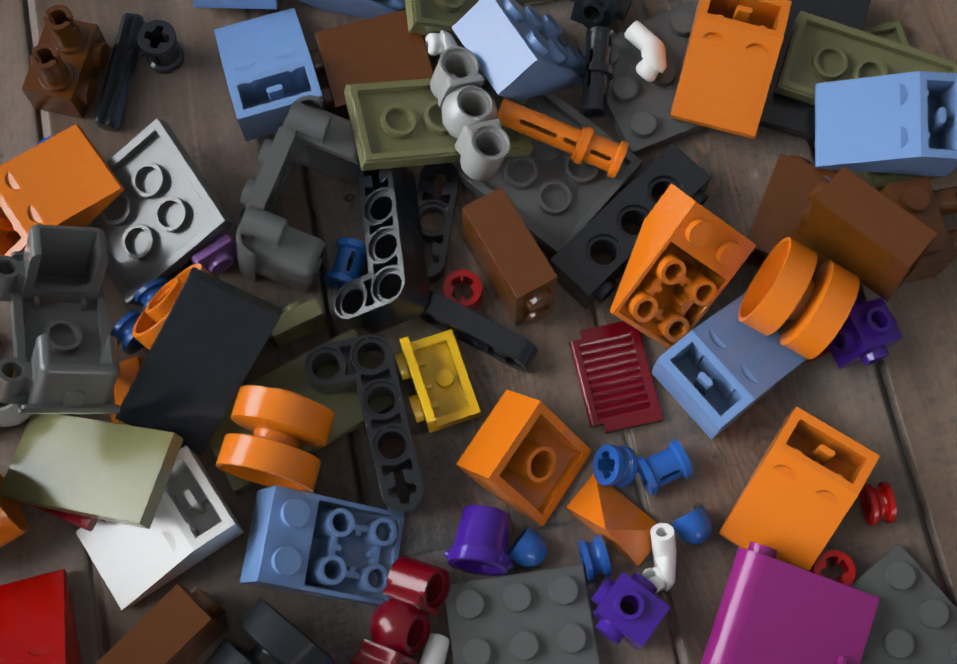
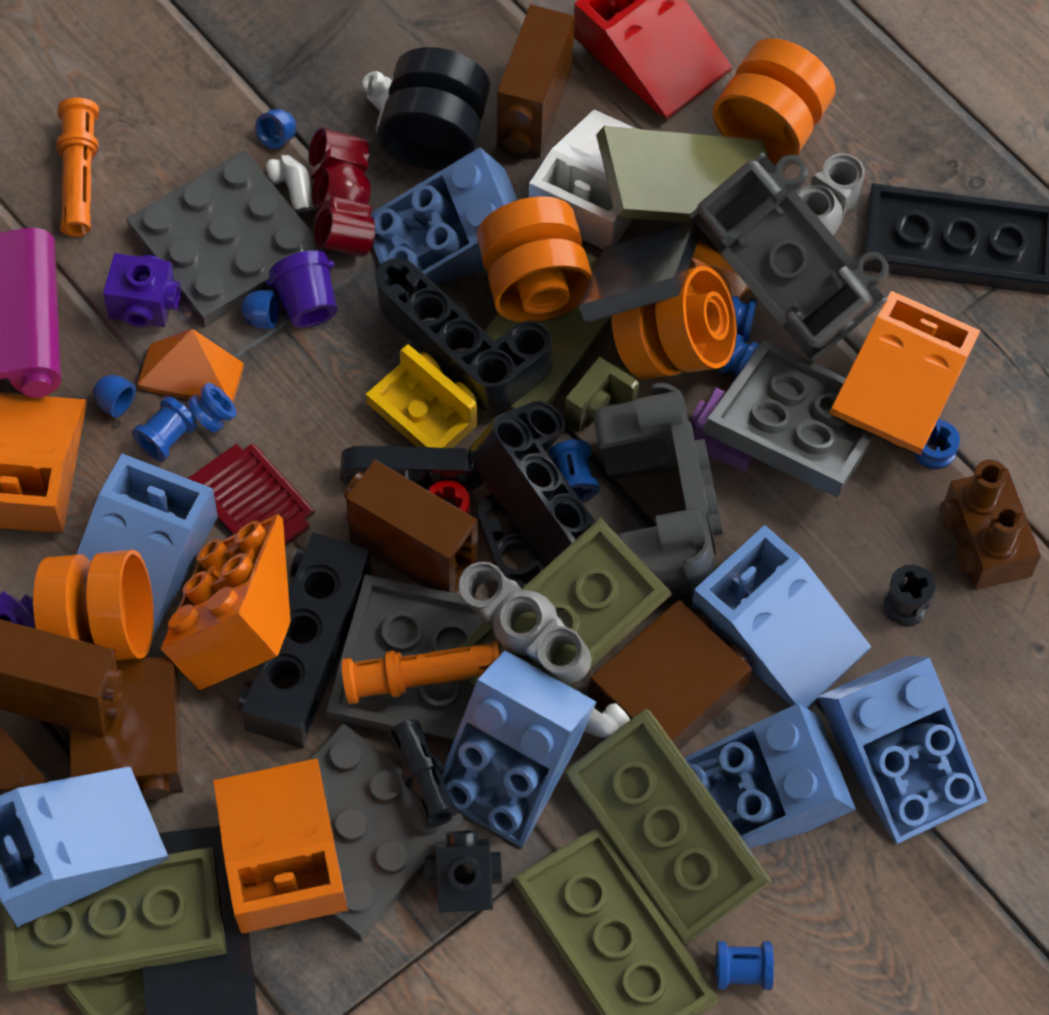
camera: 150 degrees right, 10 degrees down
(119, 73) = (937, 559): black axle -> none
(524, 456) = (304, 376): orange slope -> none
(594, 557) = (196, 319): blue bush -> none
(651, 50) = (372, 826): white arm -> none
(664, 557) = (128, 350): white arm -> none

